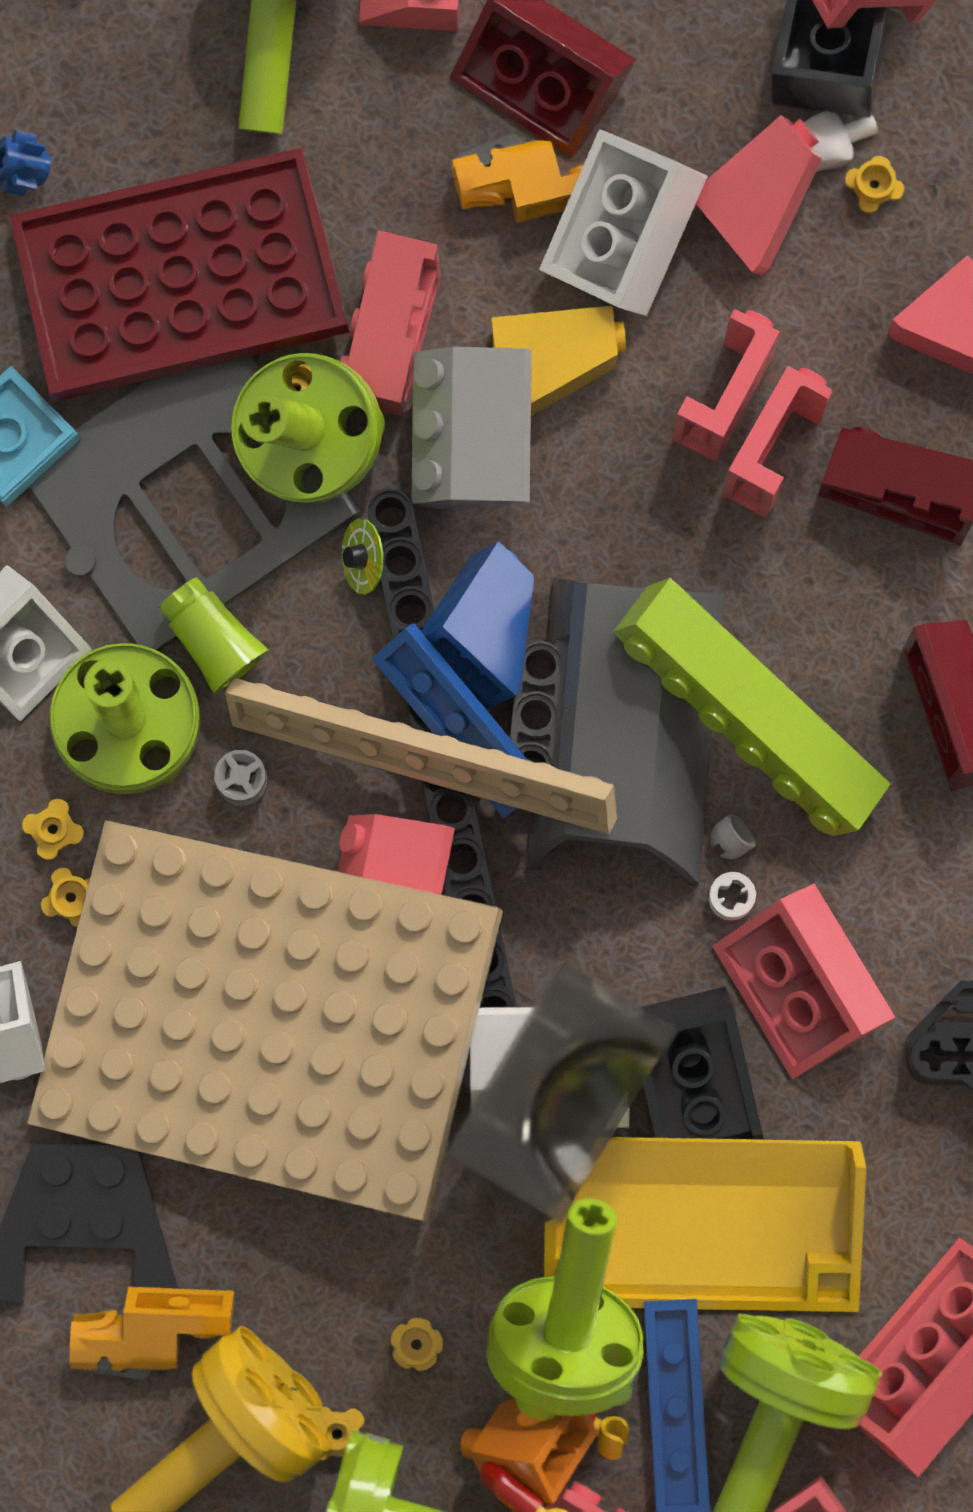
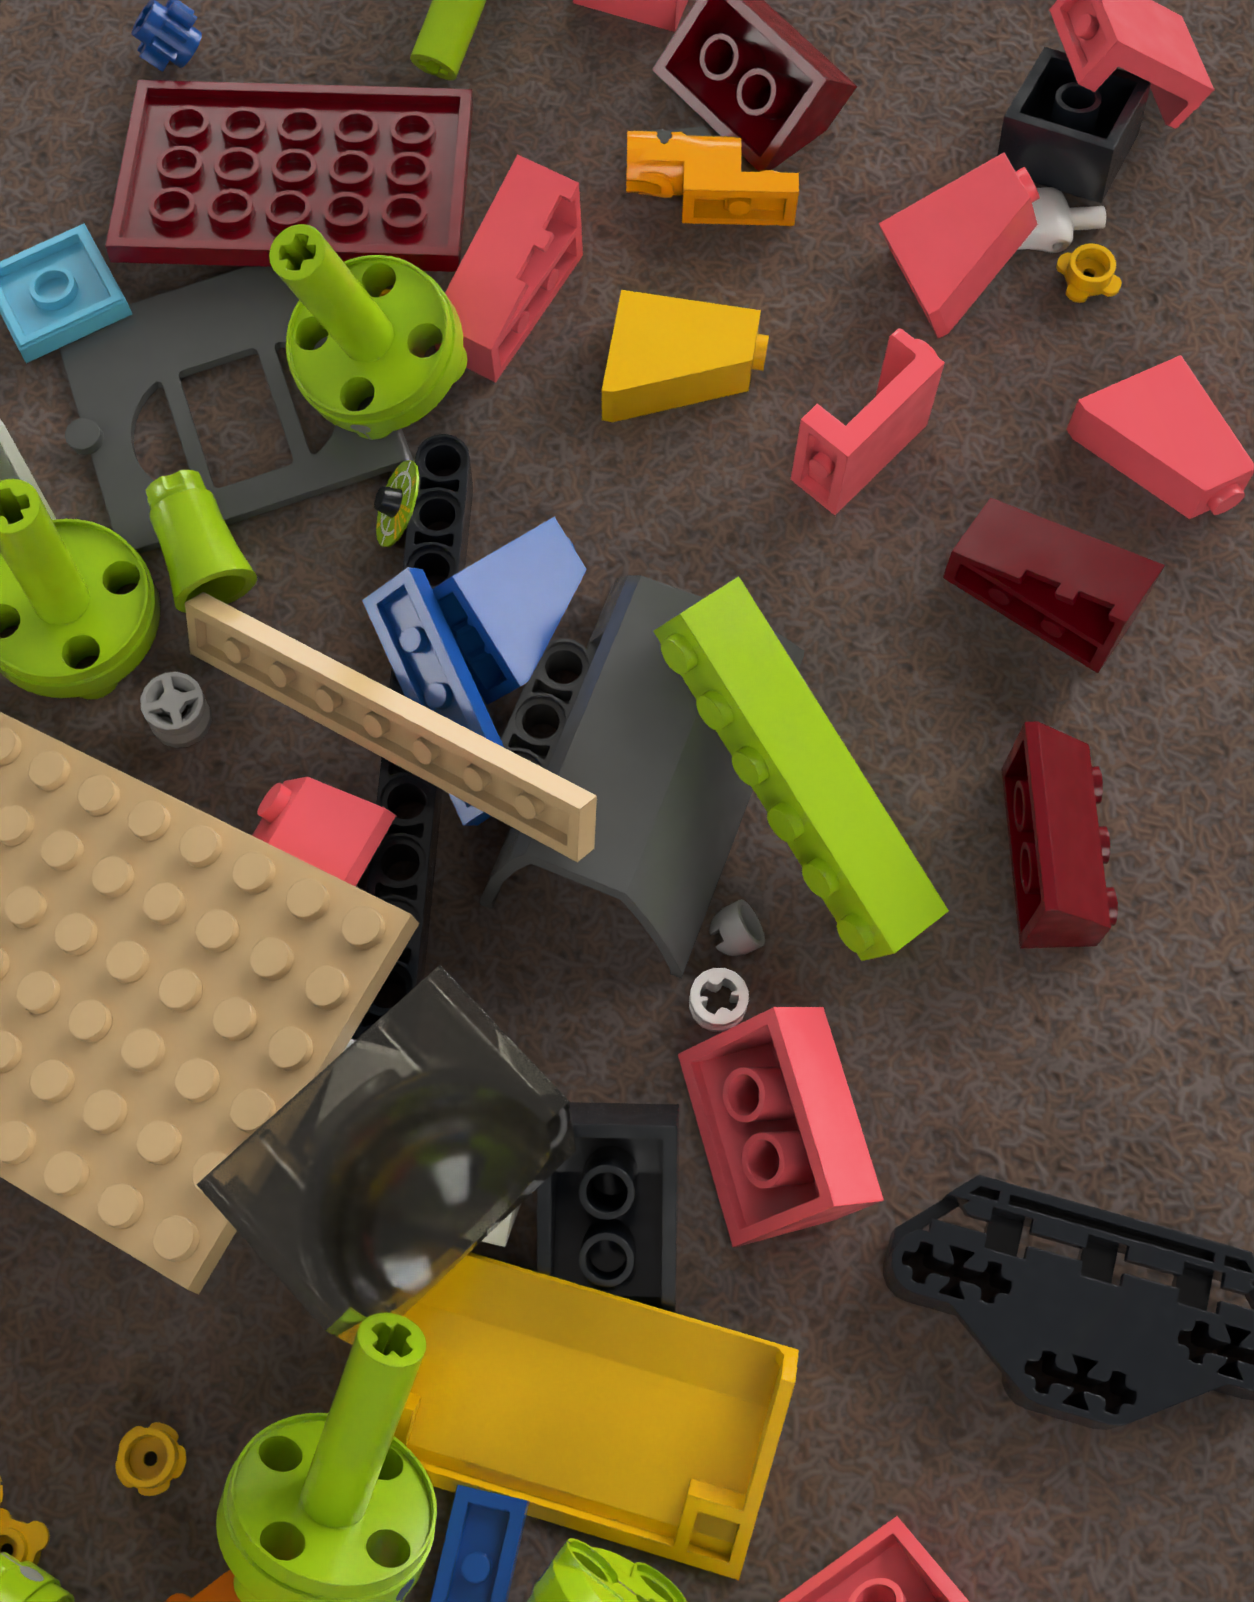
camera: 15 degrees right, 10 degrees down
(471, 427) = (560, 392): light grey slope -> none
(623, 223) = (799, 228): white slope -> none
(749, 481) = (939, 451): coral panel -> none

